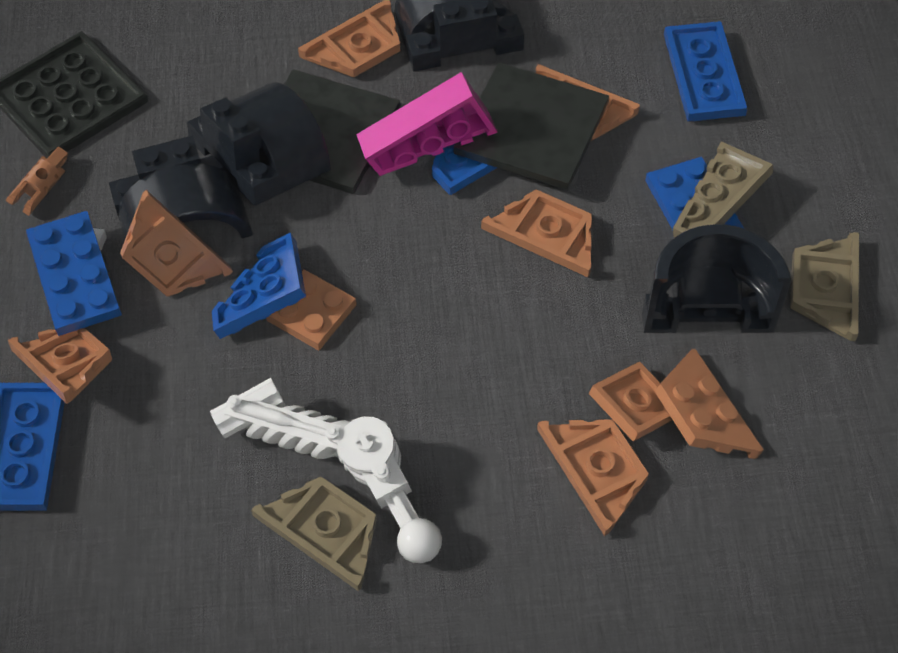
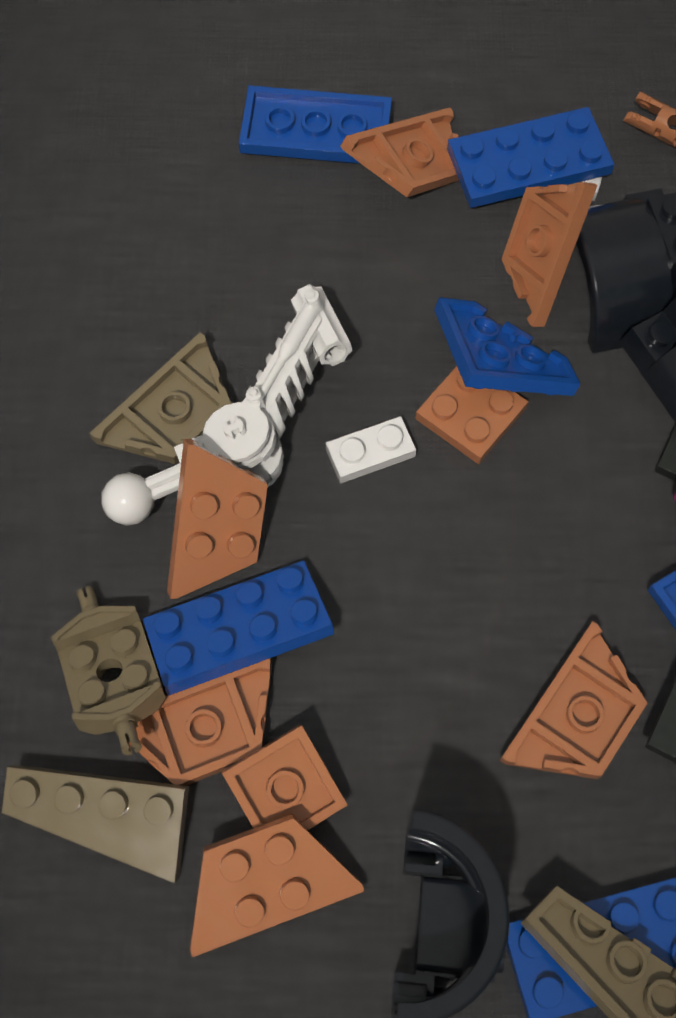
camera: 95 degrees right, 10 degrees up
(351, 376) = (370, 449): none -> white plate
(440, 464) = (214, 520): none -> nougat wing
(517, 450) = (237, 627): none -> blue plate
(539, 535) = (92, 645): none -> dark tan plate
(677, 521) = (111, 815): none -> dark tan wing

